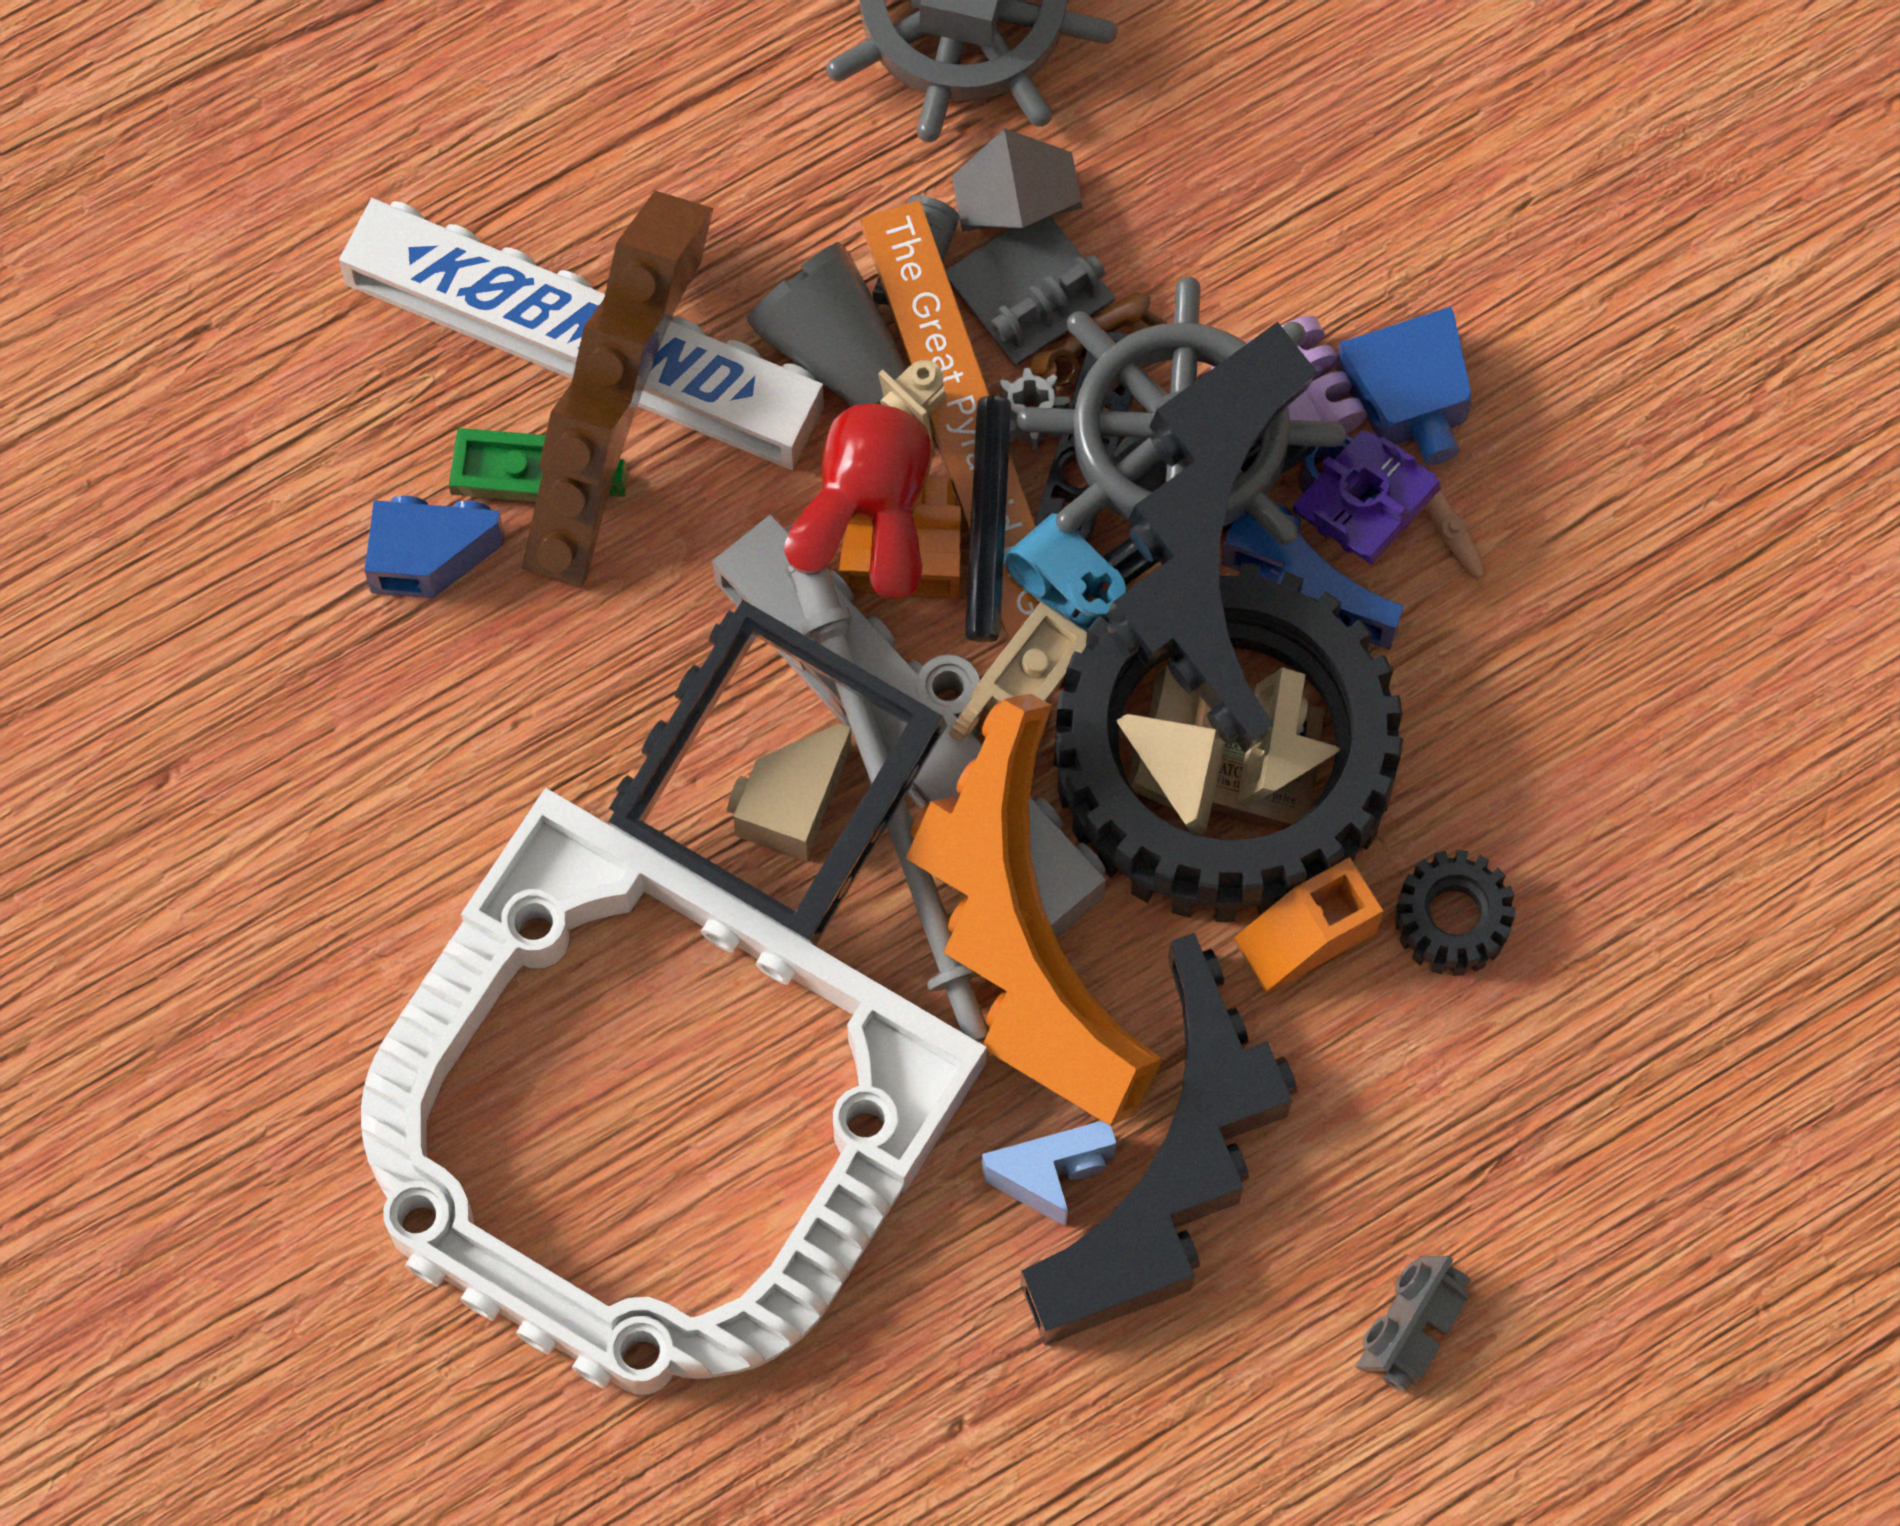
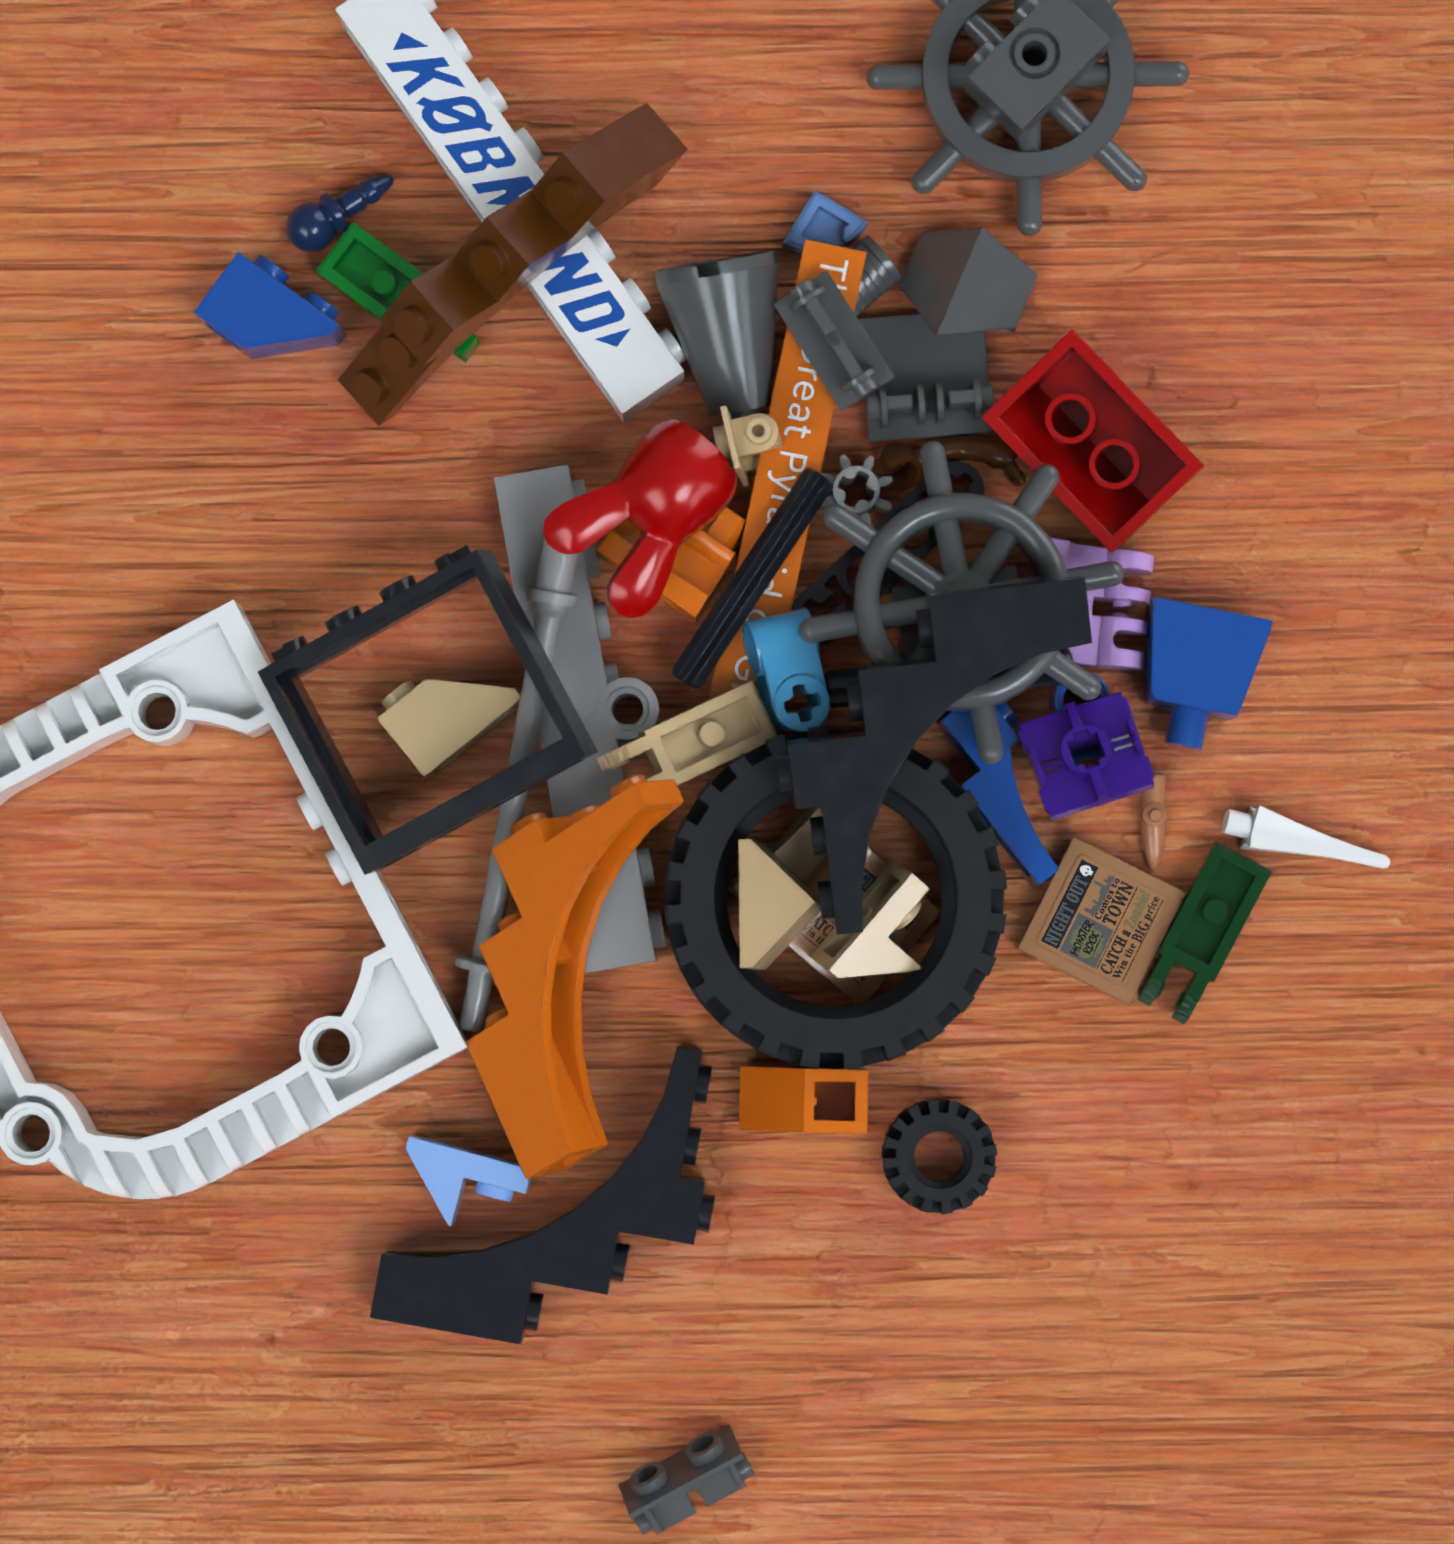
camera: 30 degrees right, 15 degrees up
(423, 452) = (314, 224): none -> dark blue bar
(859, 204) = (824, 222): none -> medium blue tile
(936, 282) = (833, 340): none -> dark grey hinge
(1229, 239) = (1104, 441): none -> red slope
(1465, 641) = (1101, 920): none -> medium nougat tile
(1557, 592) = (1206, 925): none -> dark green hinge
(1565, 485) = (1272, 832): none -> white piece

